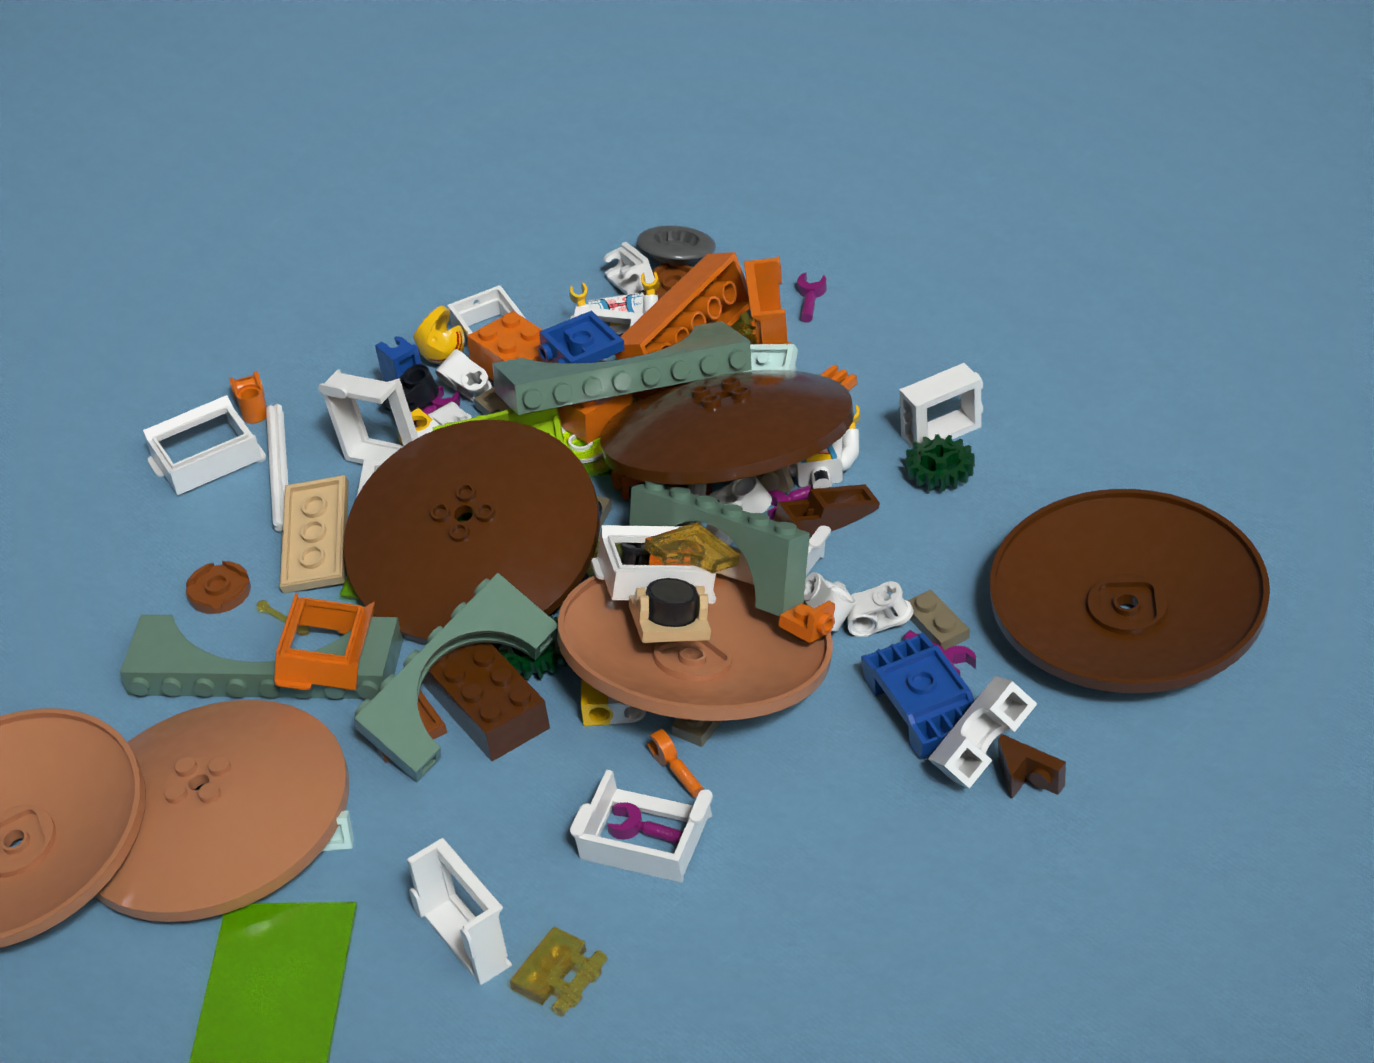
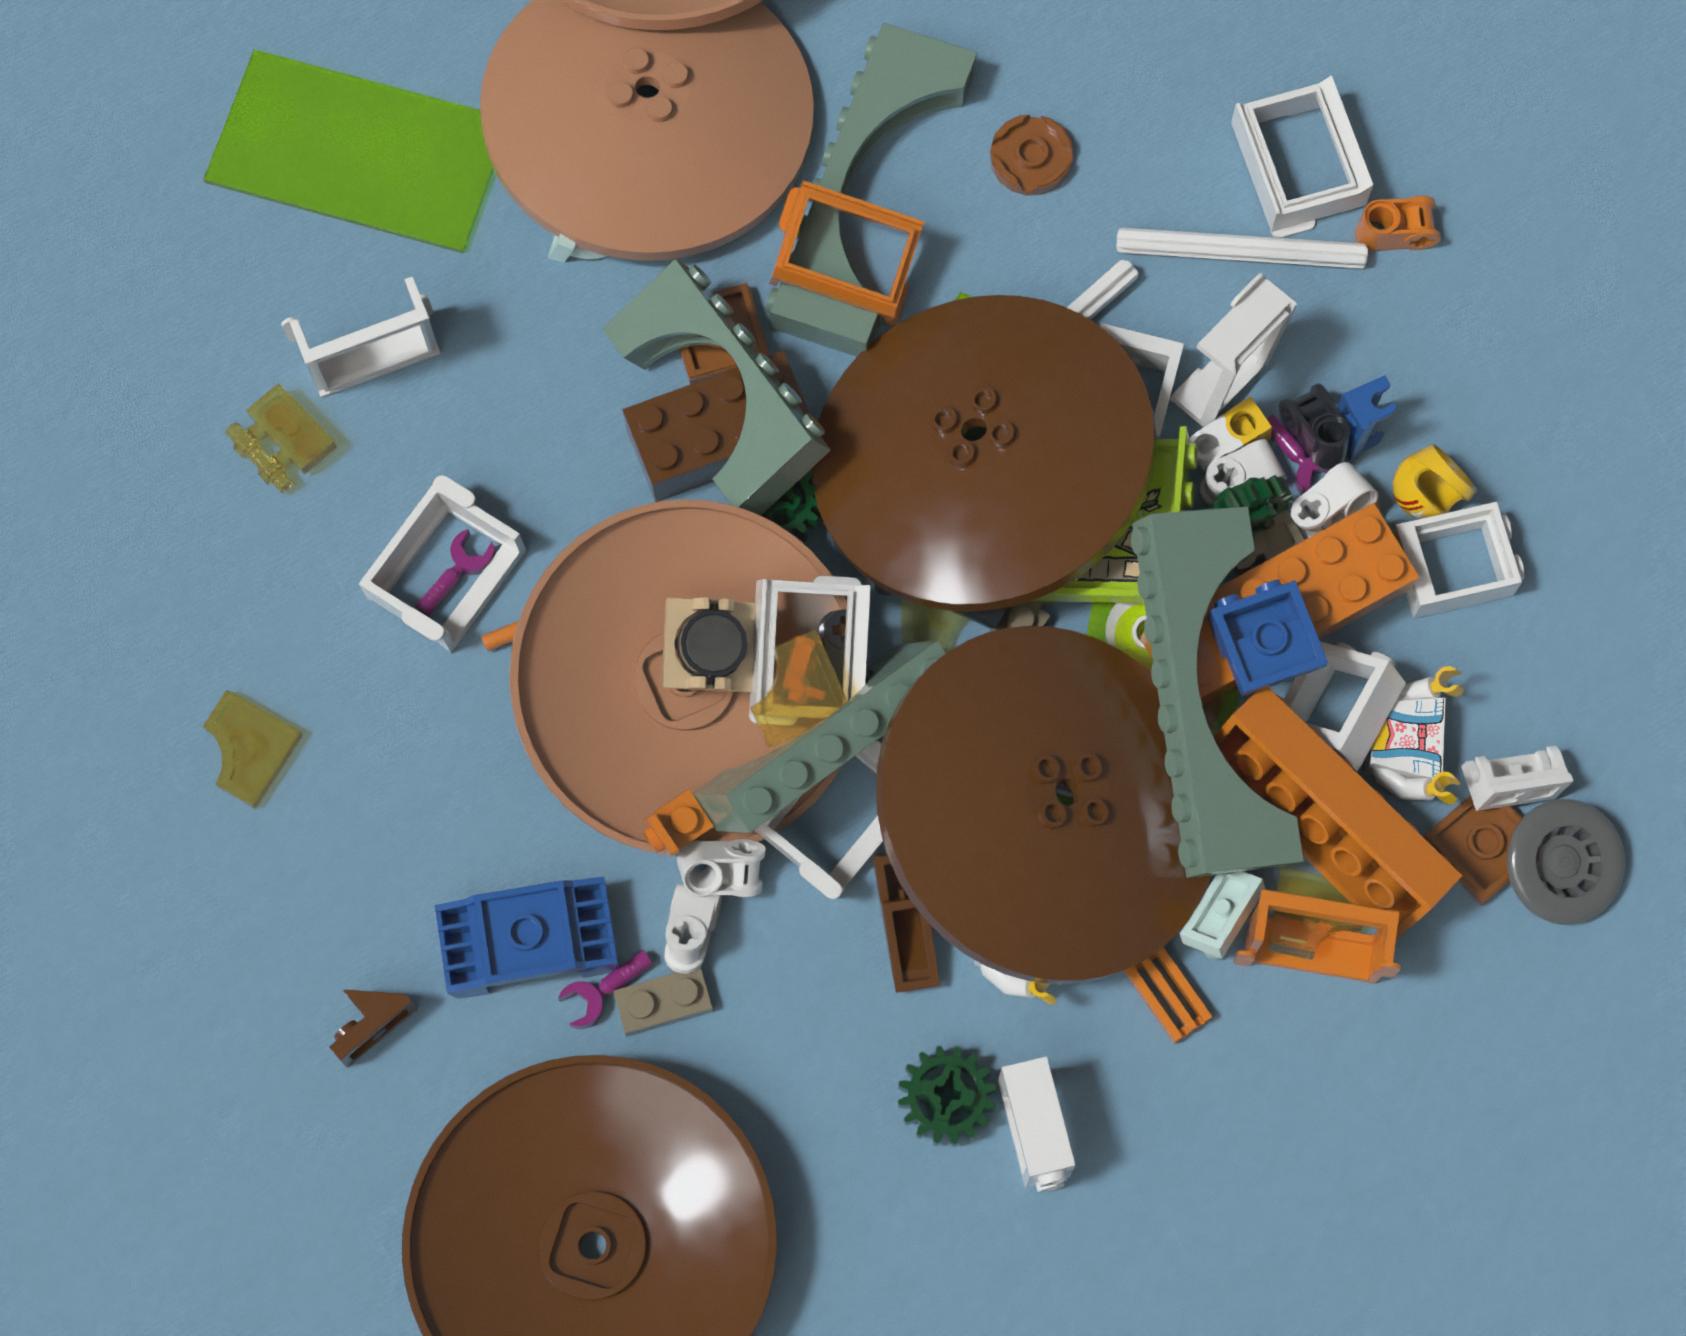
camera: 100 degrees right, 30 degrees up
(263, 606) = (923, 246): clear yellow hinge -> none
(314, 534) = (1078, 270): tan tile -> none
(478, 396) = (1261, 497): none -> dark green gear
(810, 292) = (1390, 1031): magenta piece -> none
(834, 915) = (251, 747): none -> clear yellow tile
(996, 710) = (426, 996): white arch -> none

